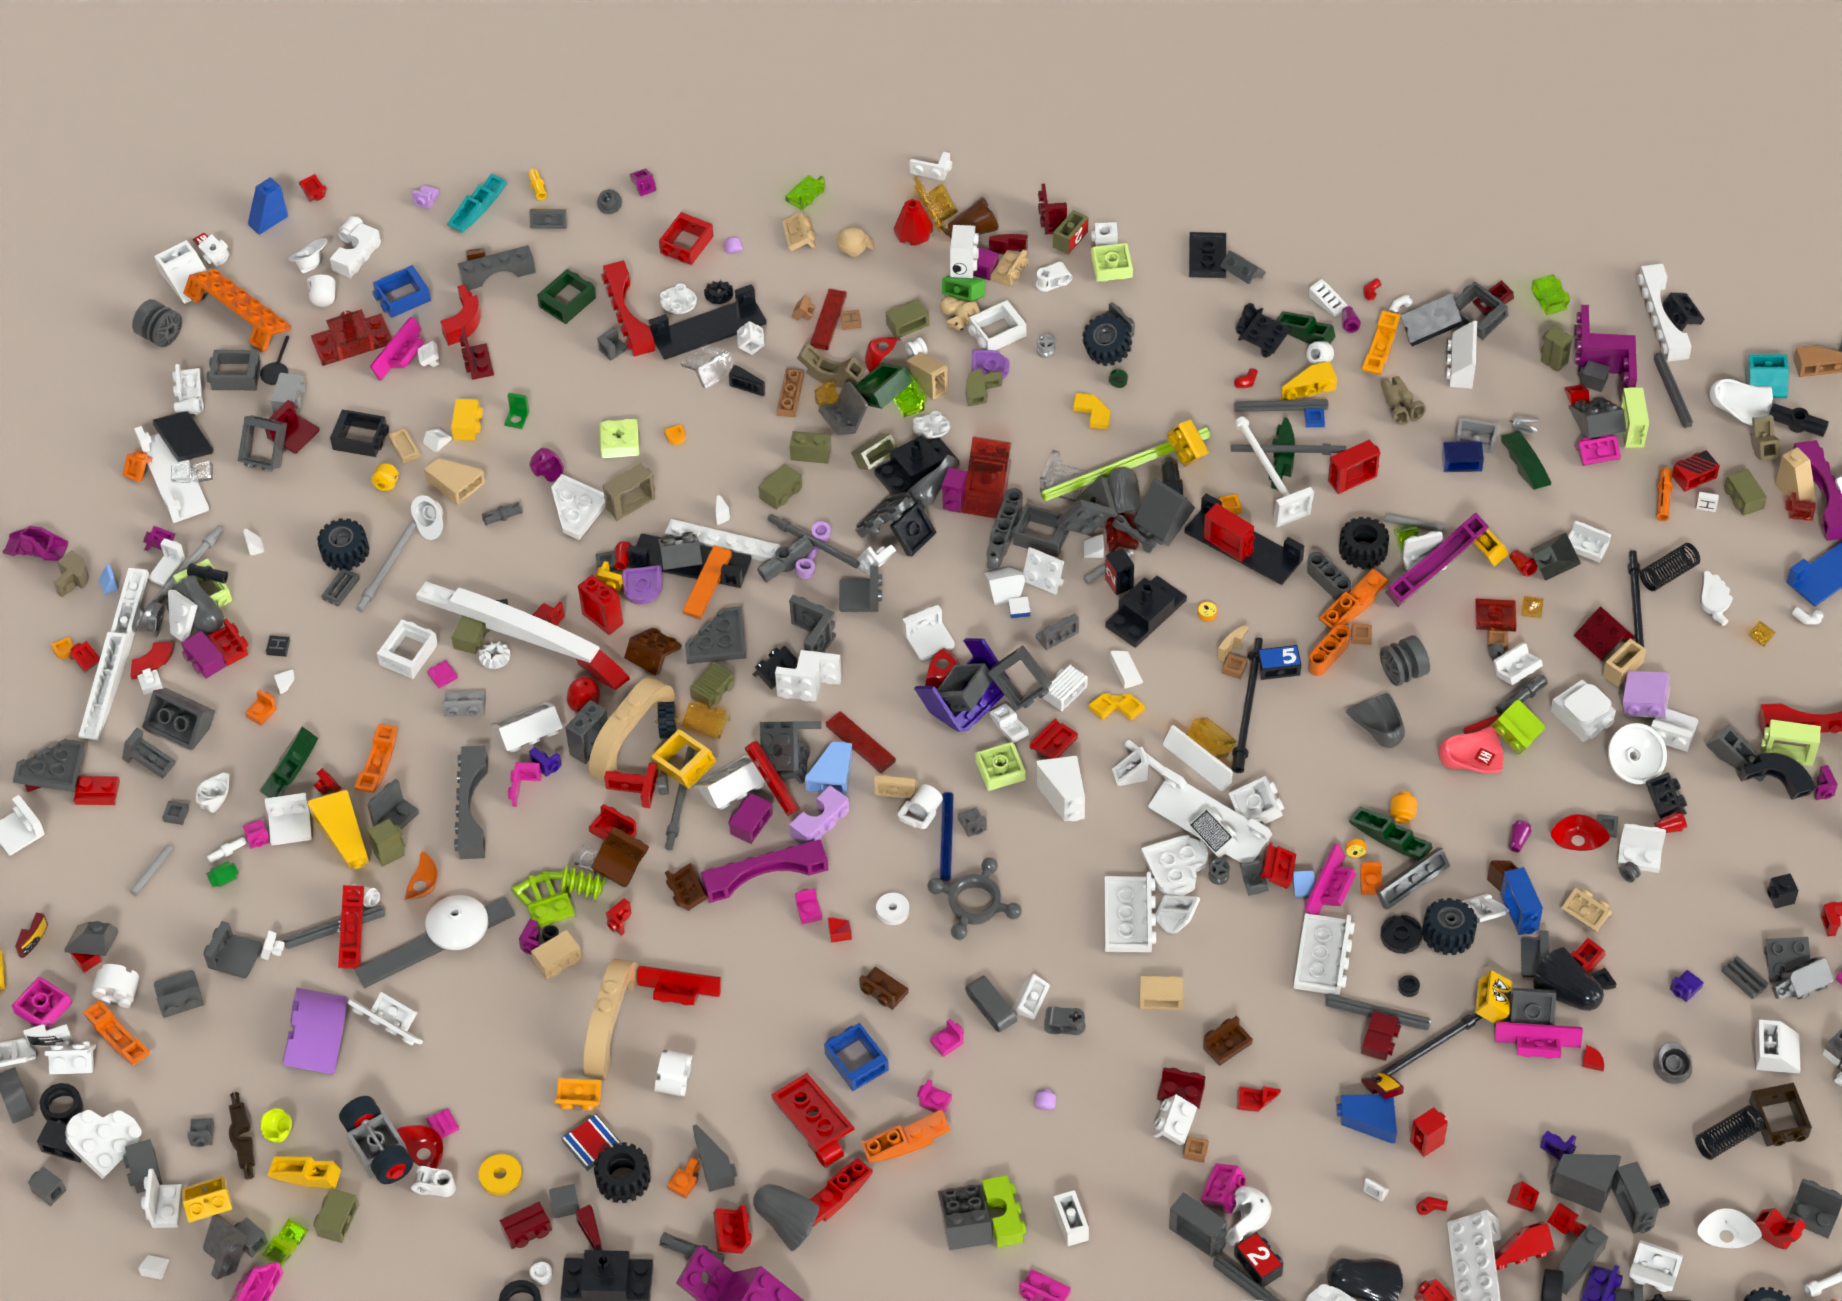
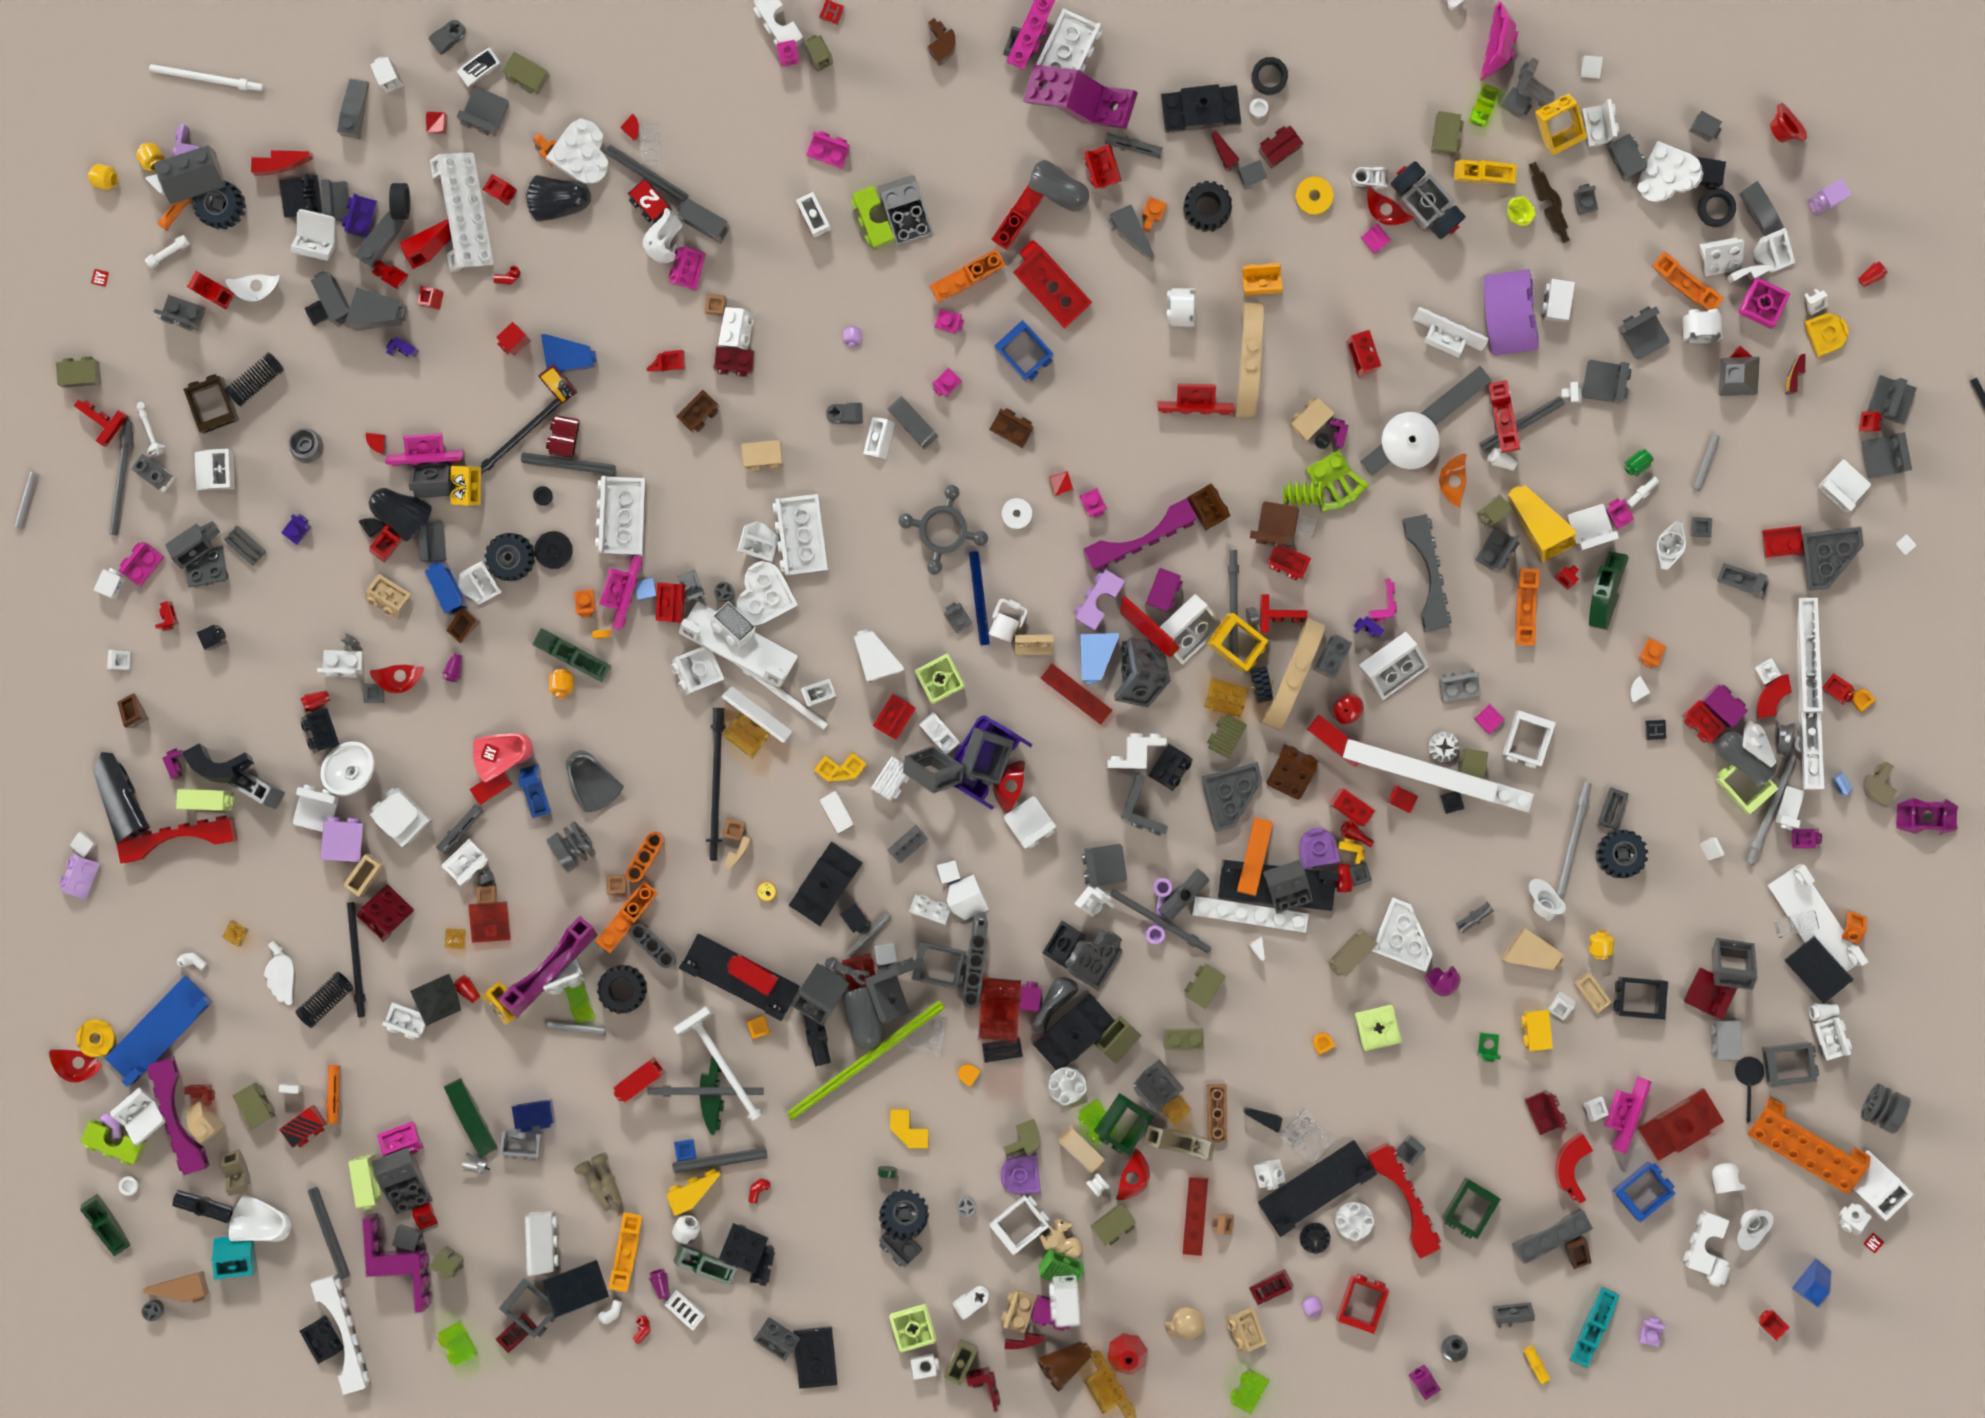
camera: 170 degrees right, 35 degrees up
(177, 718) = (1728, 630): dark grey slope -> none
(207, 573) = (1744, 791): black pin -> none
(260, 1034) = (1558, 300): none -> white brick
(485, 1000) = (1363, 359): none -> red window
(589, 1140) = (1241, 238): tile -> none
(618, 915) = (1263, 470): red bracket -> none
(761, 263) = (1268, 1281): none -> dark red slope
(850, 319) = (1172, 1218): medium nougat tile -> none
(1026, 446) = (968, 1074): none -> light orange tile
(1187, 443) = (806, 1086): yellow slope -> none
(1279, 662) = (691, 834): panel -> none
(1375, 1189) = (555, 287): white slope -> none
(1412, 878) = (547, 607): dark grey plate -> none
(1441, 718) = (534, 790): none -> blue bracket
(1518, 726) = (460, 786): lime bracket -> none

